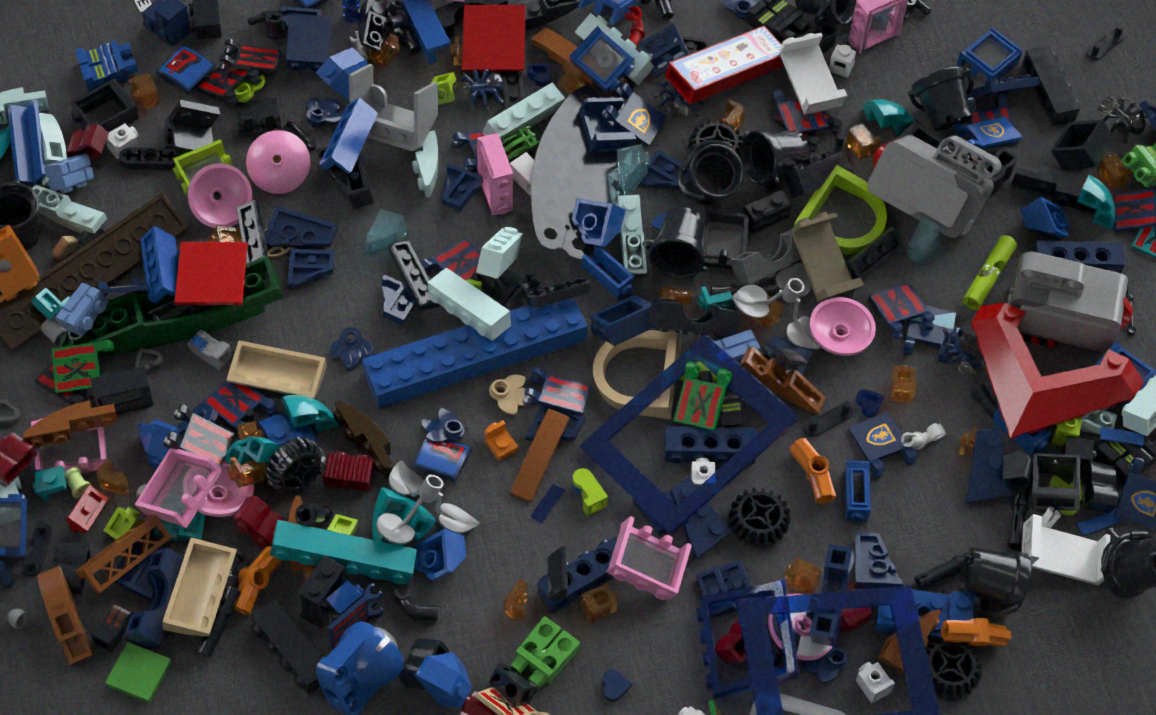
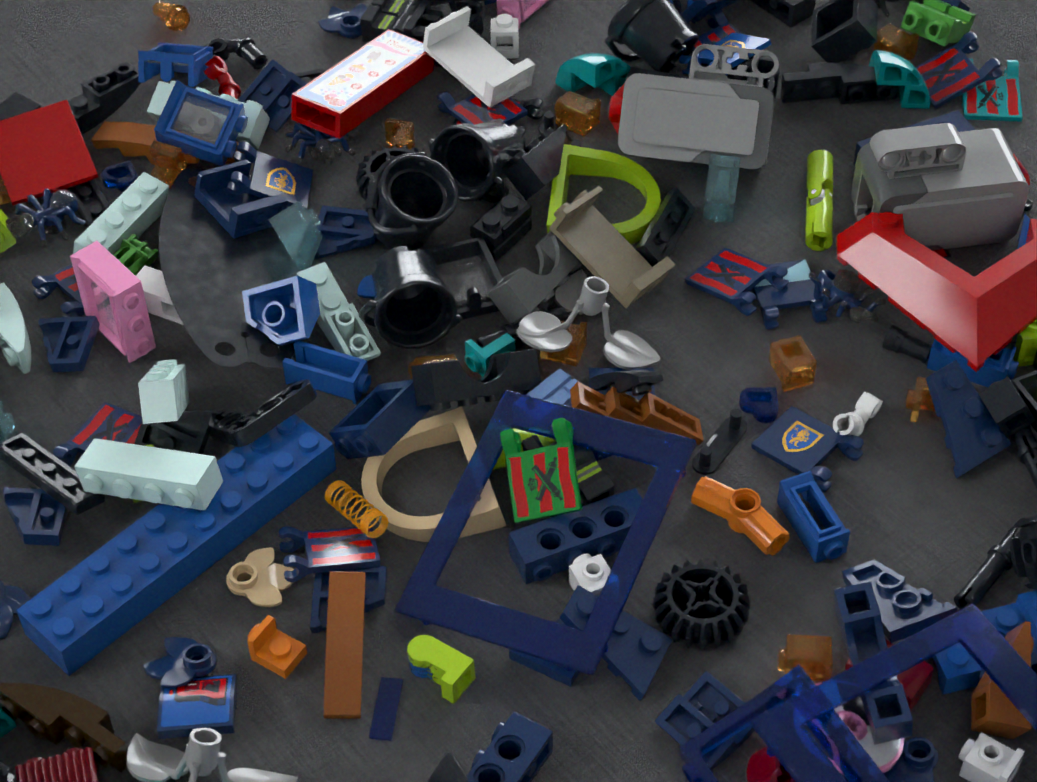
camera: 20 degrees left, 10 degrees down
(587, 382) = (365, 520): none -> light orange piece
(648, 561) = (581, 727): window -> none
(842, 317) = (676, 322): bright pink dish -> none
(1046, 218) = (847, 119): blue slope -> none

